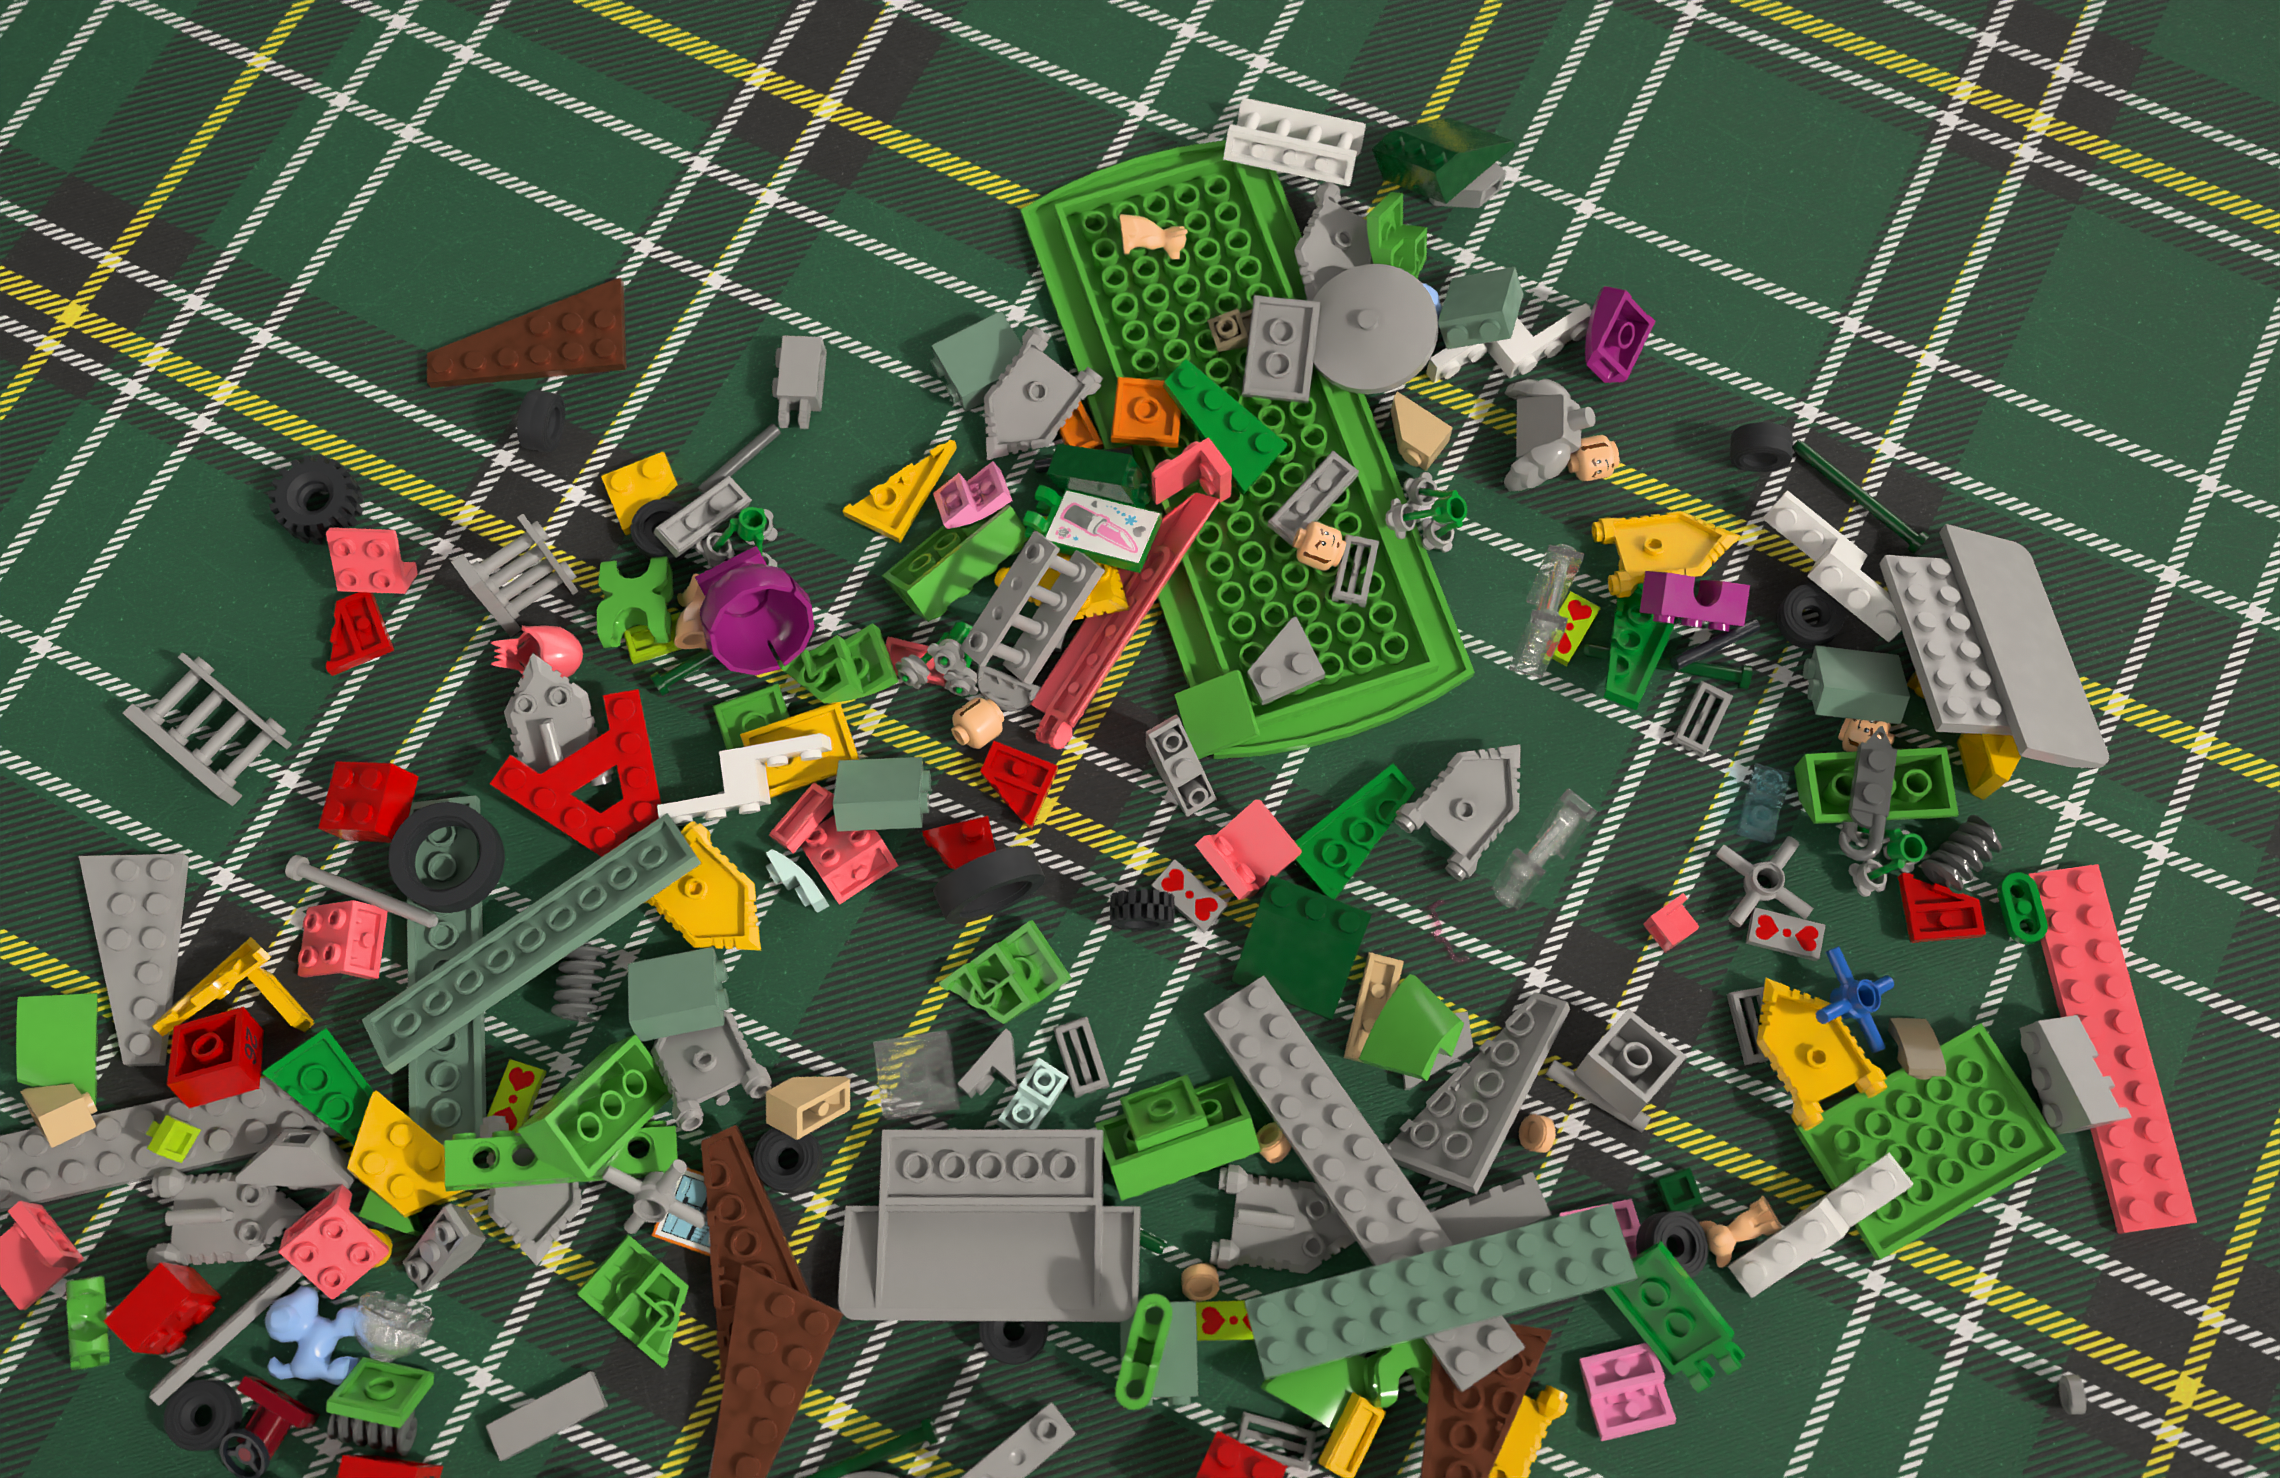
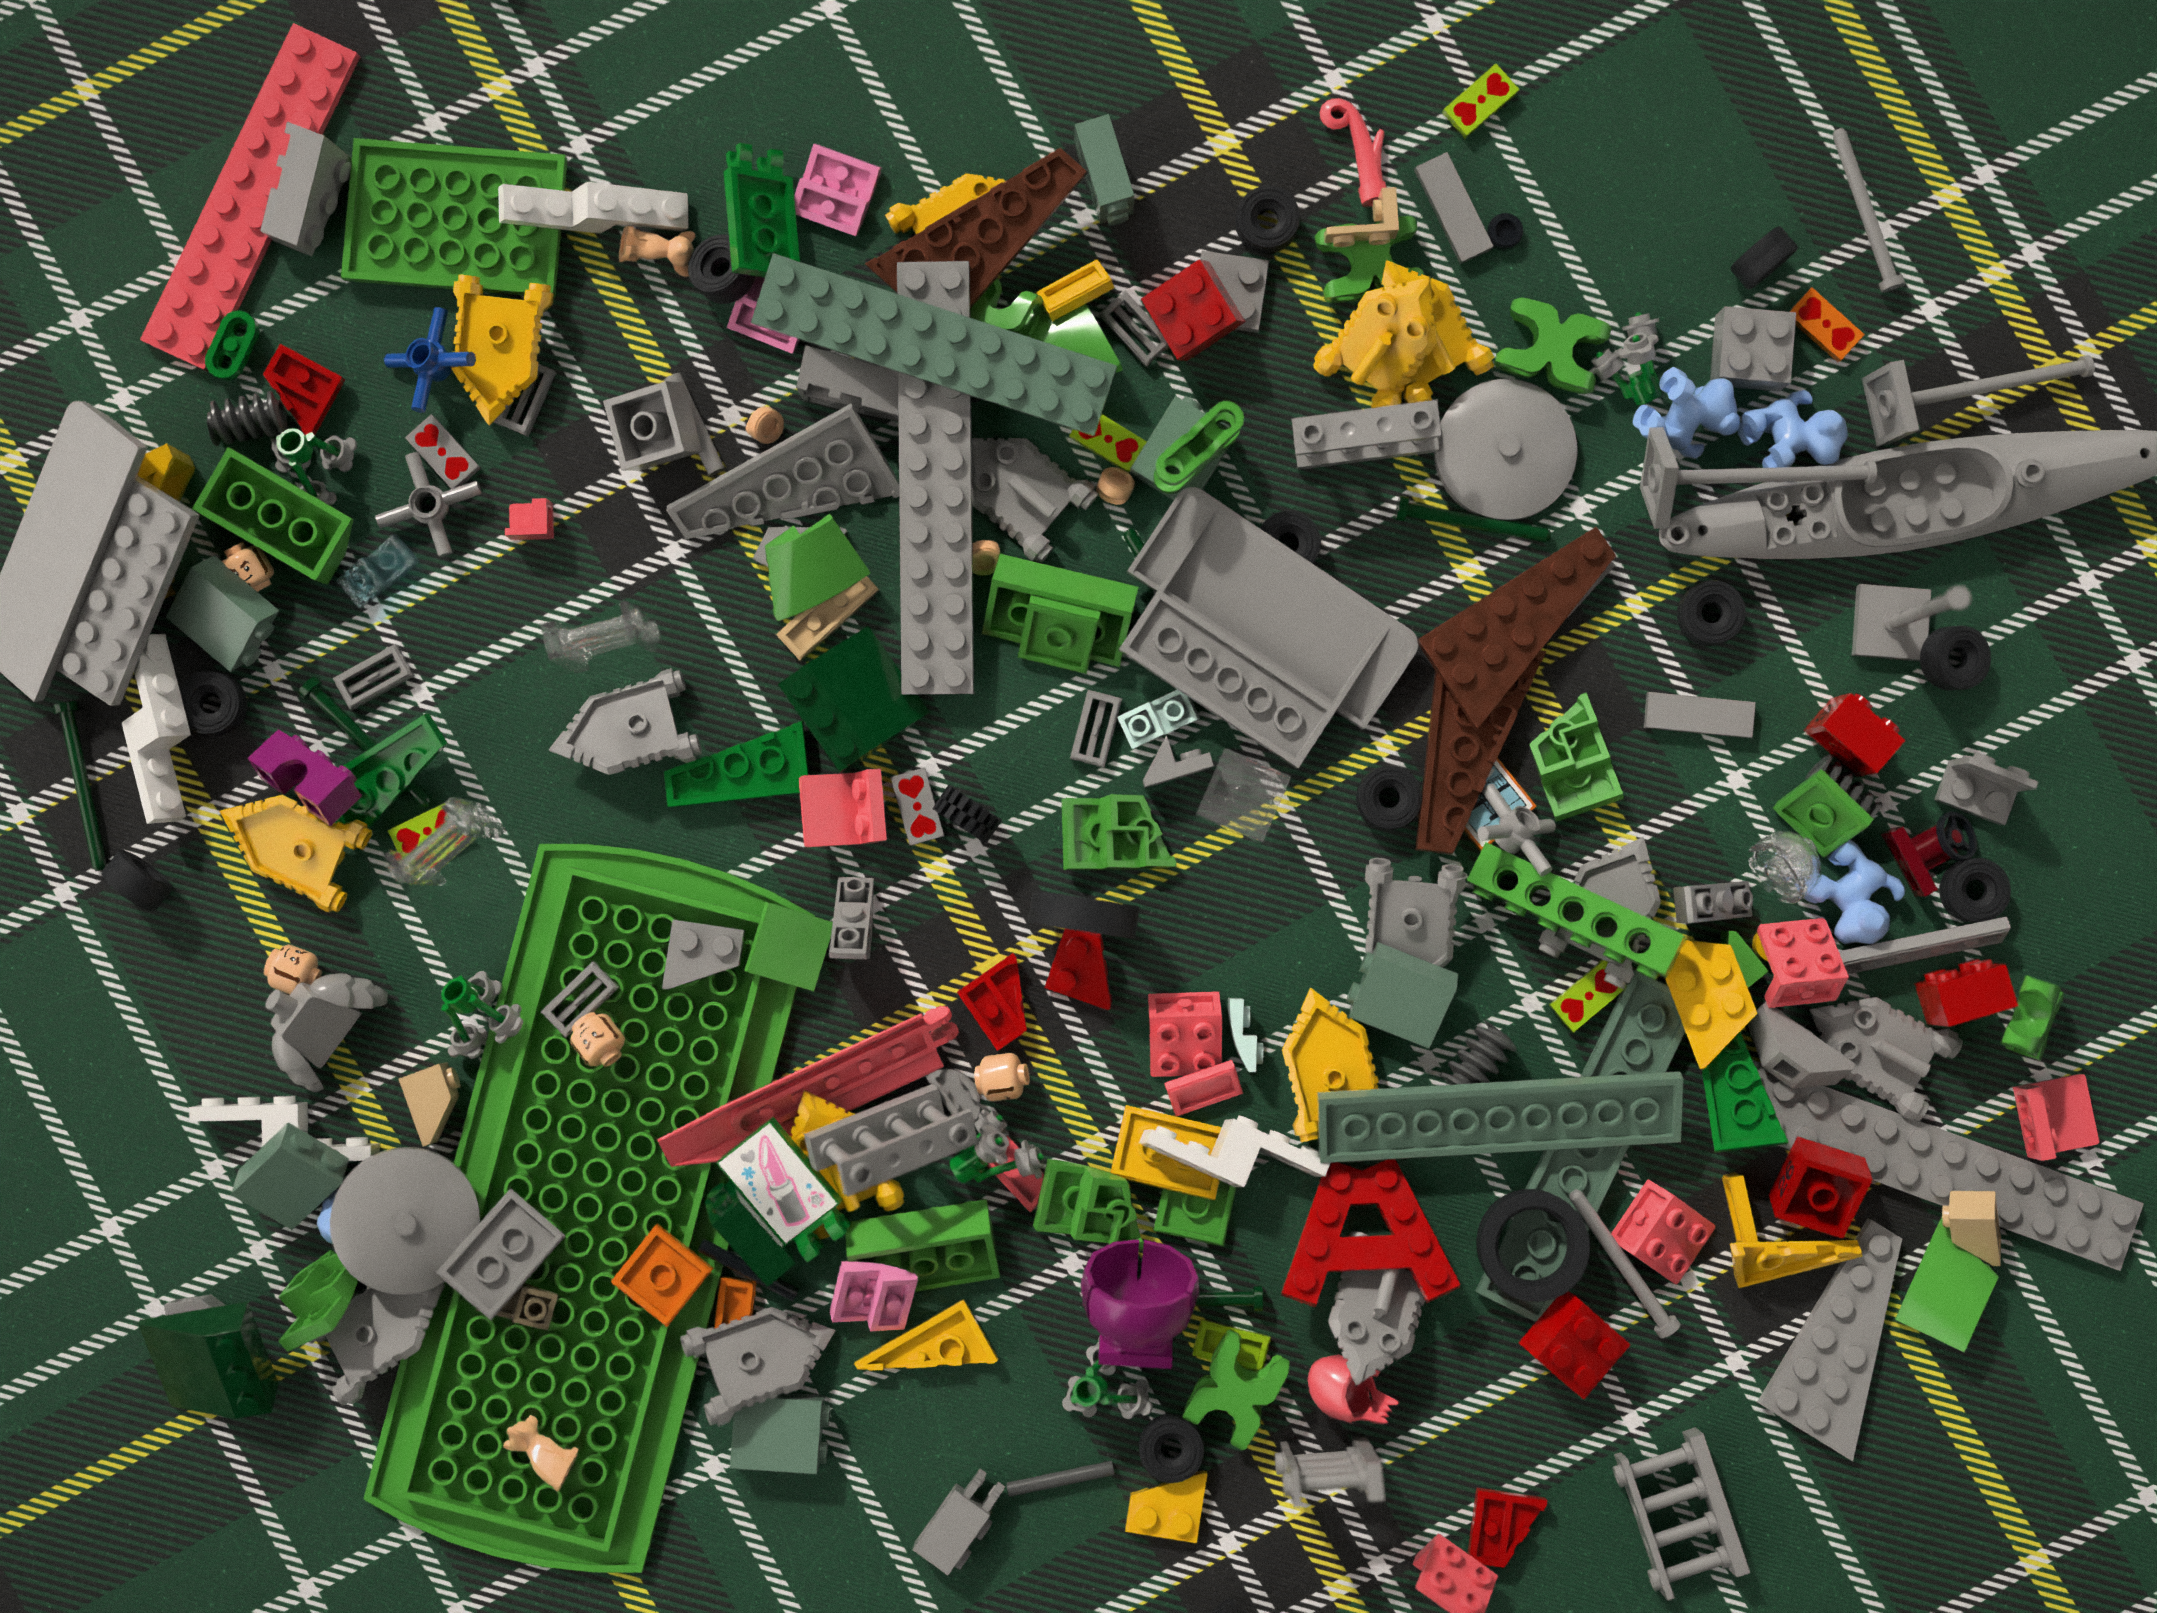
camera: 150 degrees left, 15 degrees up
(172, 1138) = (1891, 1137): lime tile -> none
(598, 1110) = (1523, 928): bright green slope -> none
(689, 625) = (1194, 1339): light nougat animal -> none
(702, 516) = (1127, 1435): light grey tile -> none
(806, 1103) = (1348, 830): tan slope -> none
(881, 794) = (1125, 1061): sand green brick -> none
(1196, 462) = (647, 1165): coral bracket -> none
(1234, 431) = (601, 1208): green wing -> none
(1295, 141) = (355, 1450): white fence -> none
(1313, 496) = (569, 1092): light grey tile -> none
(1443, 939) = (728, 642): piece -> none
(1615, 334) = (186, 1073): magenta slope -> none
(1678, 1191) = (684, 310): dark green tile -> none
(1714, 644) = (316, 731): black bar -> none
(1871, 793) = (287, 510): dark grey plate -> none
(1918, 1047) = (407, 290): dark tan slope -> none

